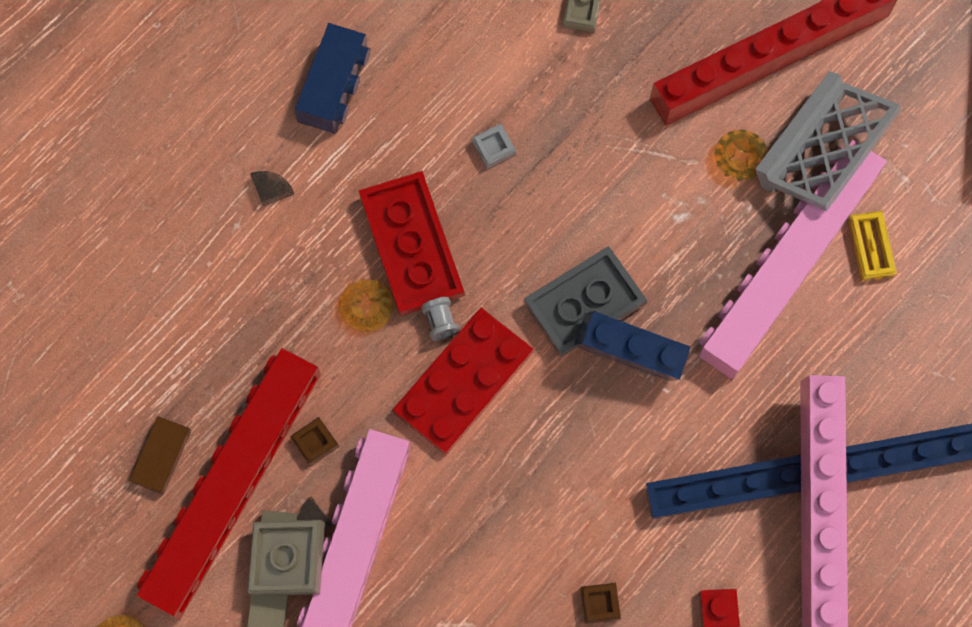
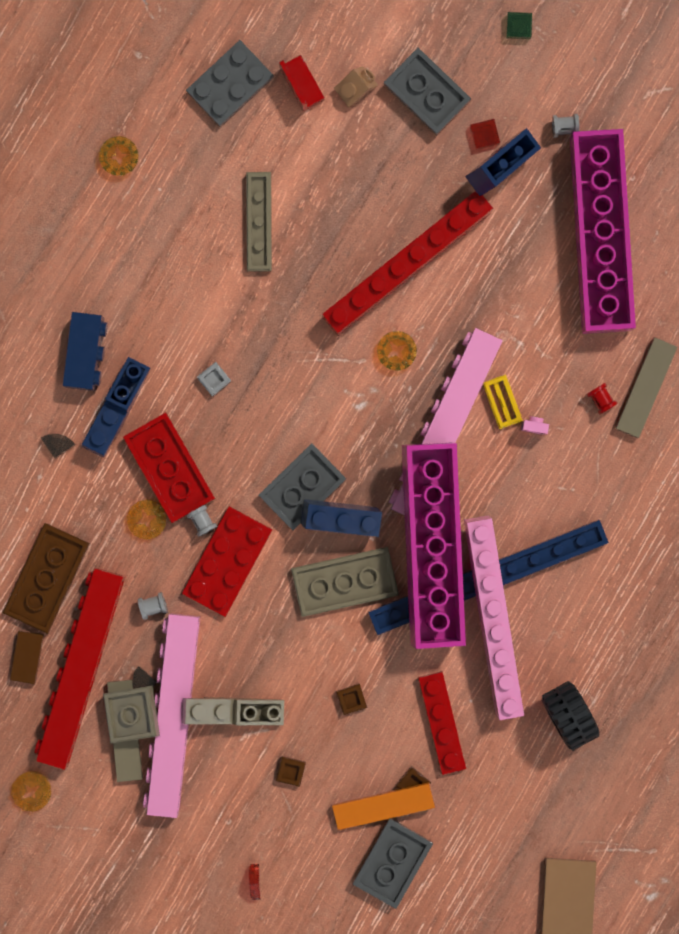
camera: 10 degrees left, 15 degrees up
(213, 356) = (46, 578): none -> reddish brown tile
(314, 441) = (132, 625): reddish brown tile -> none
(349, 418) = (152, 606): none -> light grey bush
(359, 154) = (116, 407): none -> dark blue slope
(430, 583) = (233, 711): none -> dark tan slope
(619, 439) = (344, 581): none -> dark tan tile
(756, 402) = (433, 545): none -> dark pink brick
(802, 132) = (437, 330): light grey fence -> none
(913, 282) = (535, 425): none -> bright pink plate

